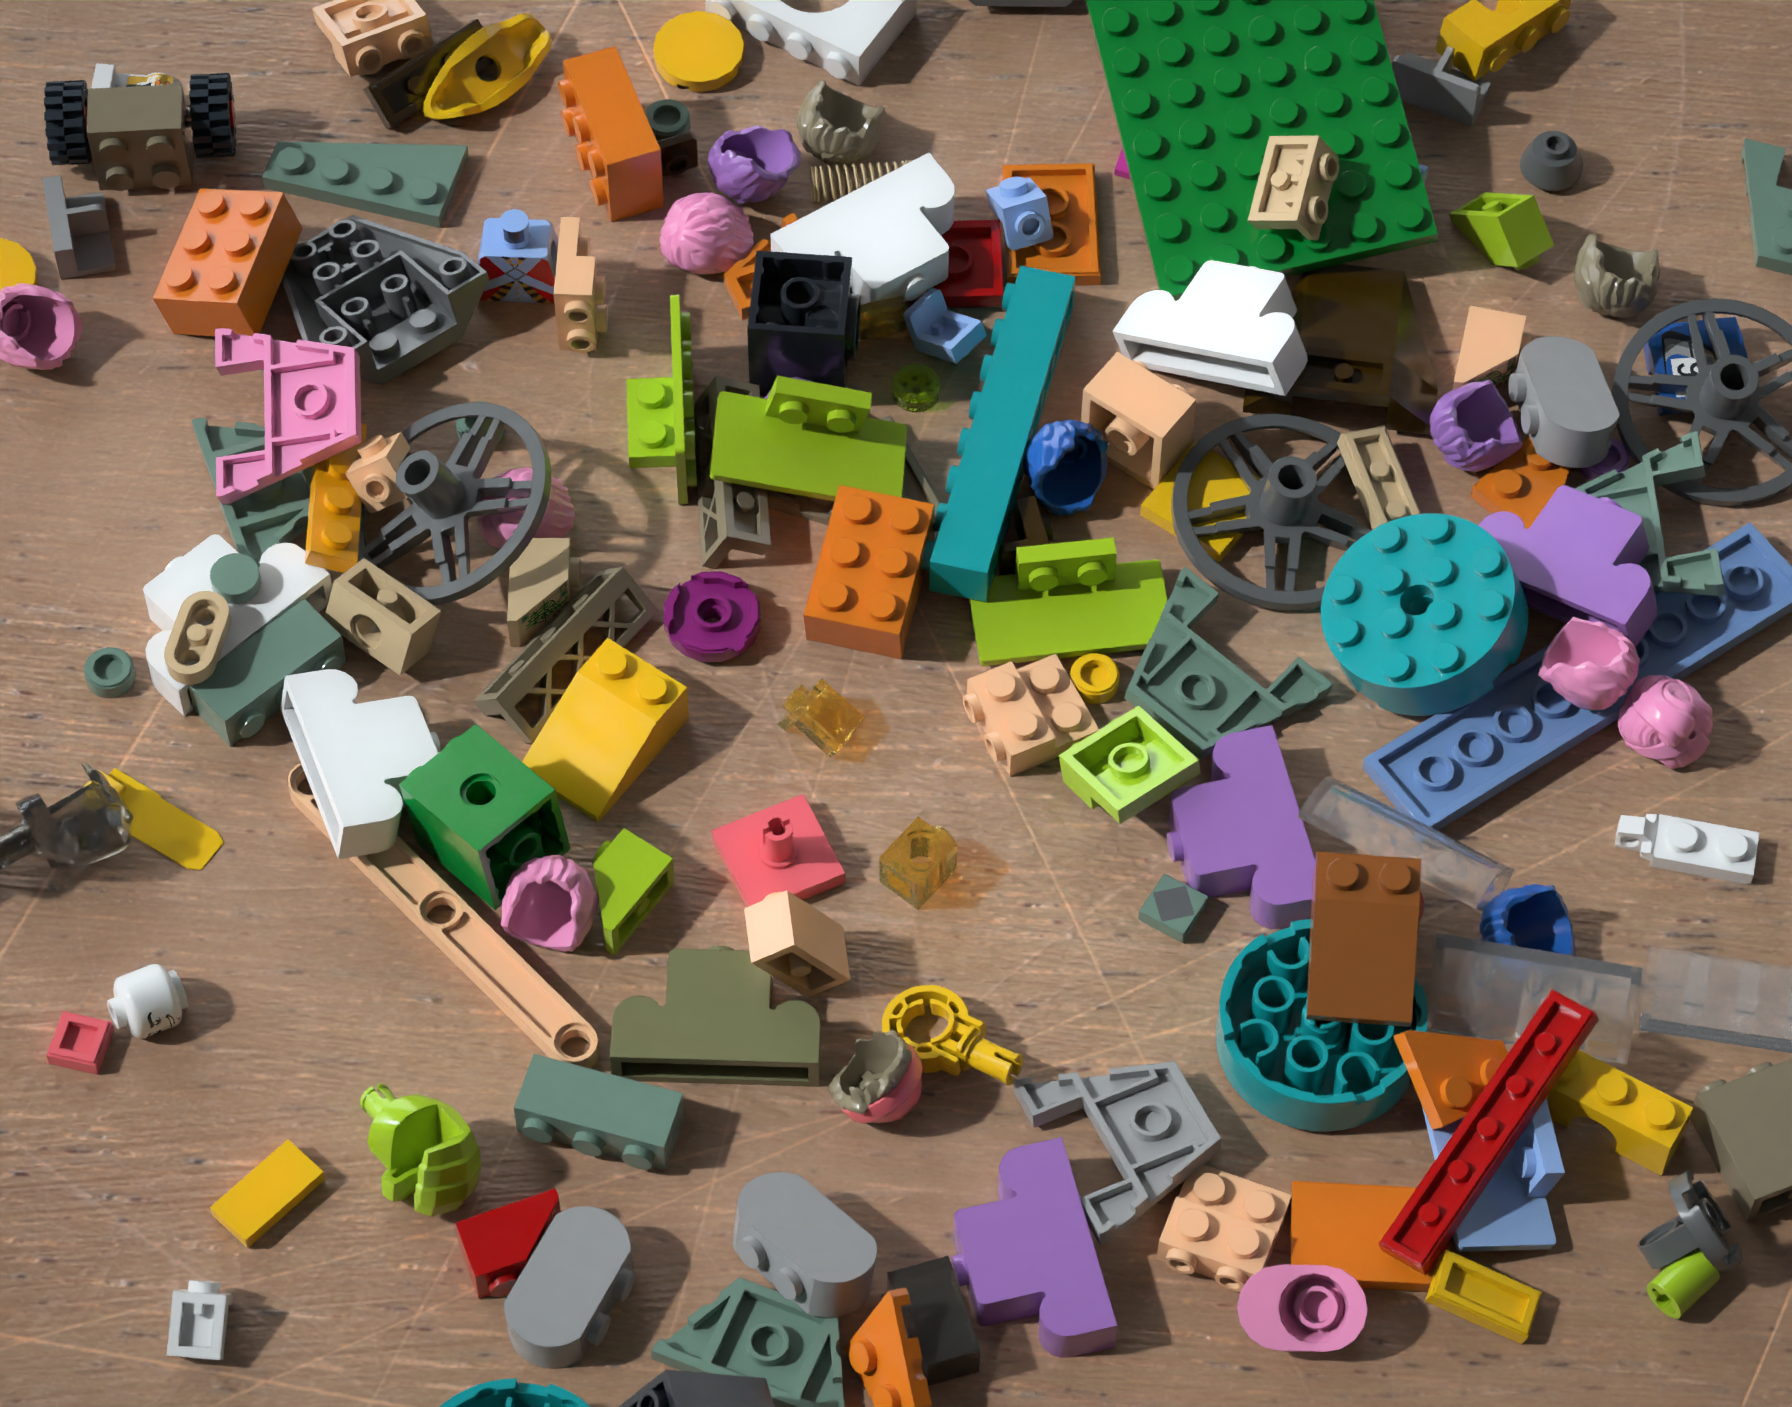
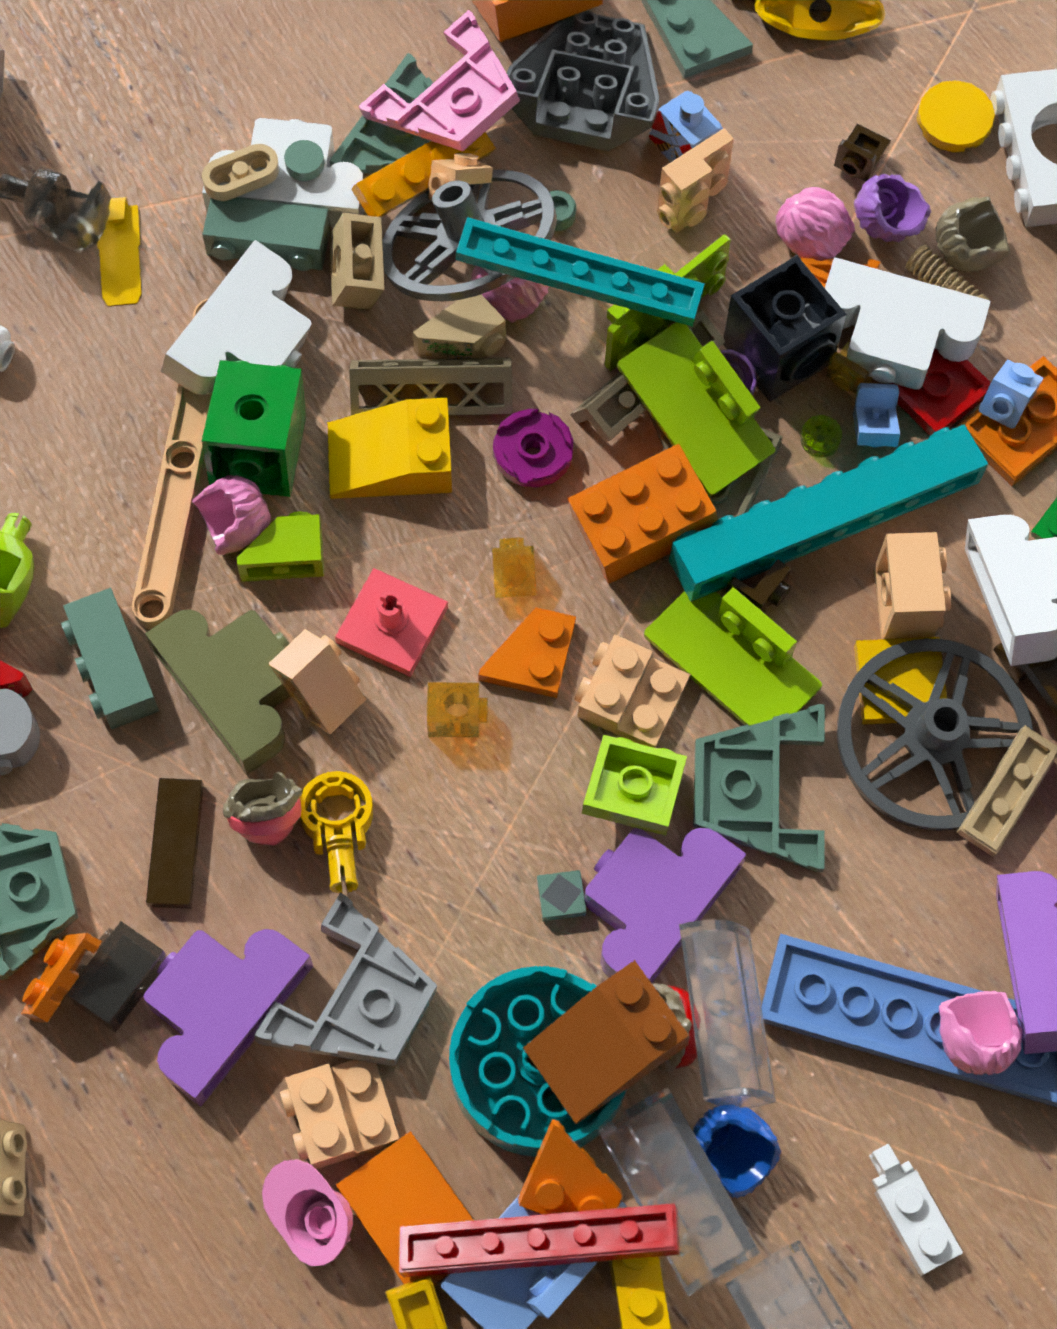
camera: 50 degrees right, 10 degrees up
(109, 672) = (197, 149): sand green tile -> none
(604, 427) = (579, 271): none -> teal plate
(611, 134) = (830, 111): orange brick -> none
(668, 118) = (875, 136): sand green tile -> none
(804, 1244) = (103, 853): light grey brick -> none
(806, 1155) = (175, 843): none -> dark brown tile
(919, 764) = (533, 654): none -> orange wing
(1066, 465) = (835, 571): blue hair -> none
(1095, 678) = (696, 713): yellow tile -> none
(1424, 614) = (922, 889): teal brick -> none
(1665, 721) = (994, 1118): bright pink hair -> none

